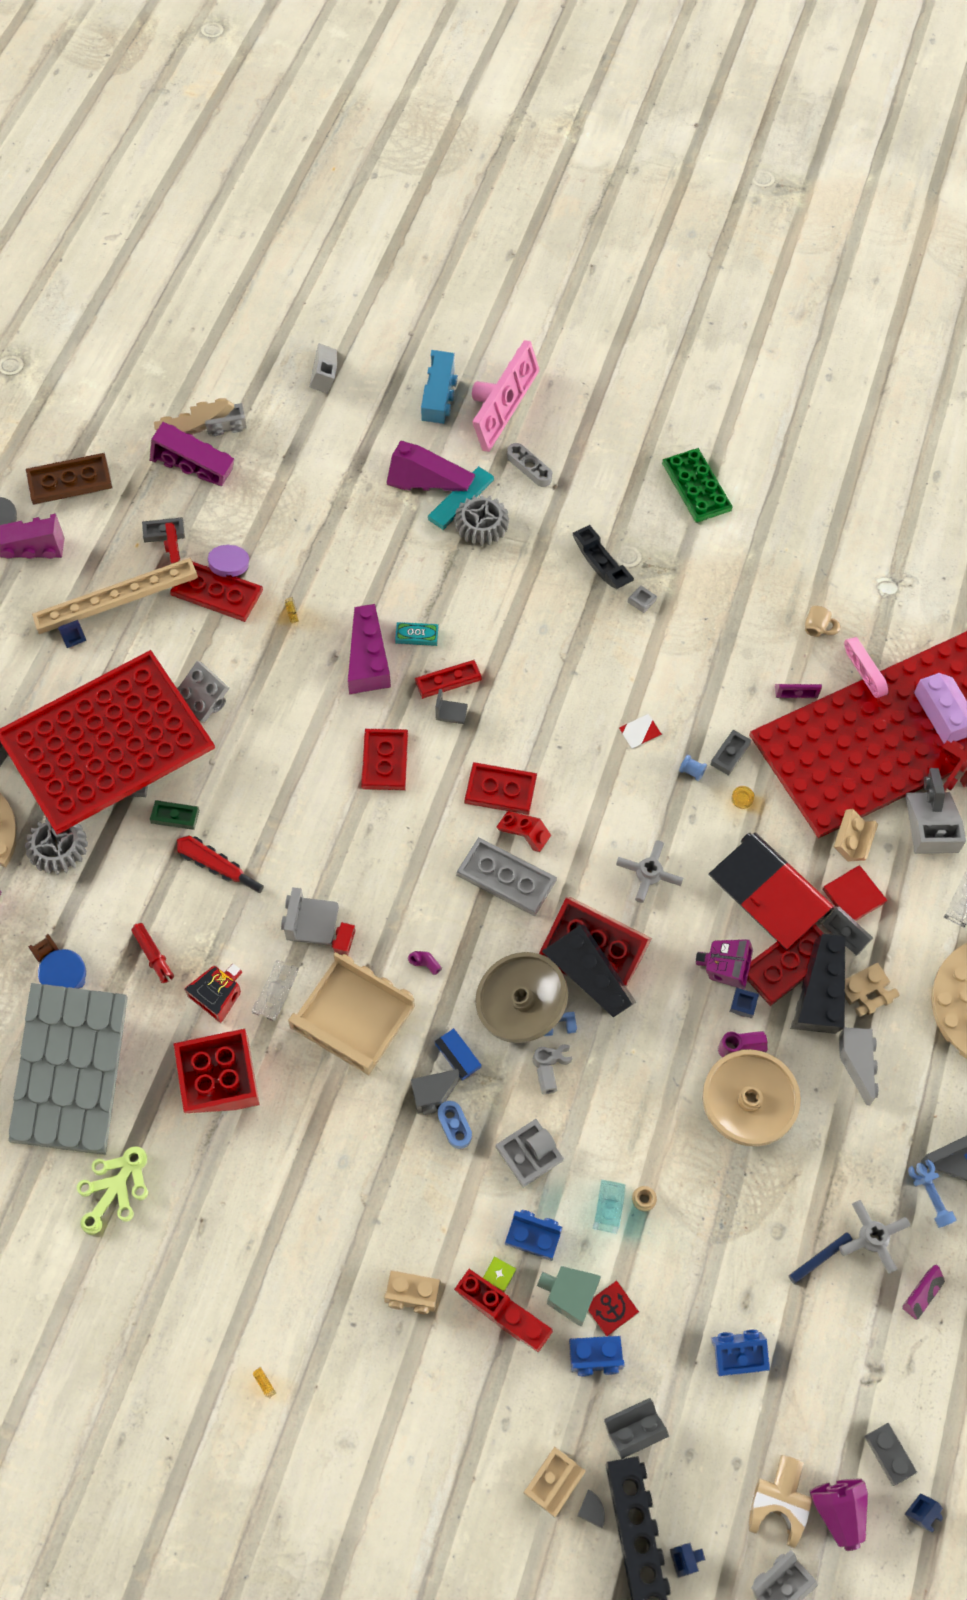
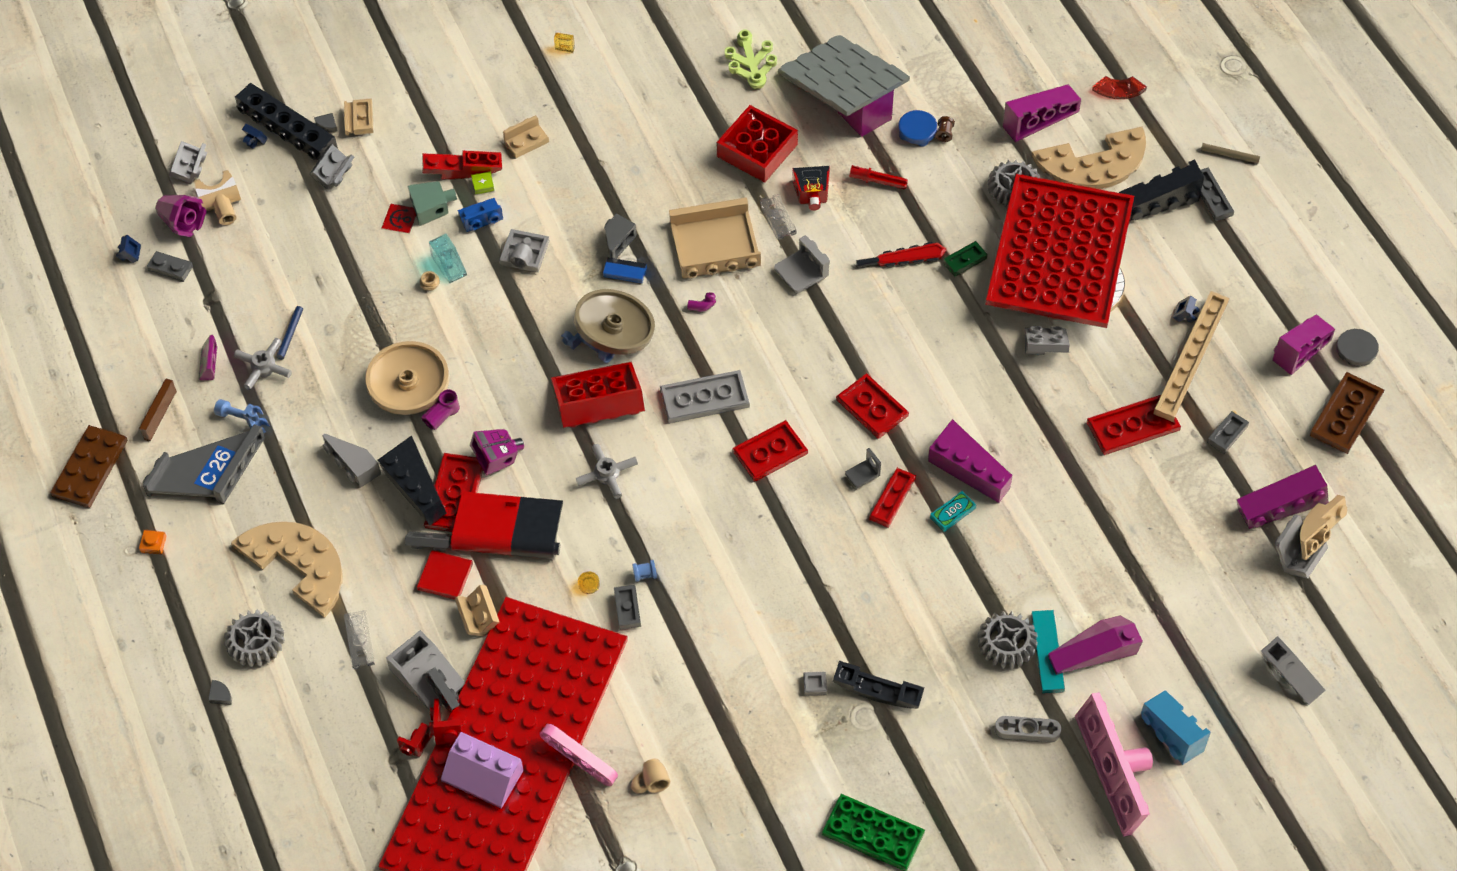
camera: 140 degrees right, 5 degrees down
(171, 543) = (1201, 419): red plate -> none
(228, 560) = (1151, 447): medium lavender tile -> none
(291, 610) = (1061, 450): clear yellow tile -> none
(344, 938) = (768, 275): red piece -> none
(455, 1125) = (588, 230): medium blue plate -> none
(527, 826) = (721, 427): red bracket -> none
(543, 1059) = (565, 306): light grey bar -> none
(588, 967) = (582, 366): black wedge -> none
(596, 1355) = (386, 185): blue bracket -> none
(640, 731) = (713, 575): white sticker -> none
(741, 1352) = (301, 247): blue bracket -> none
(744, 1003) = (461, 432): dark blue tile -> none
(797, 690) = (621, 703): magenta slope -> none
(866, 983) = (388, 518): tan plate -> none

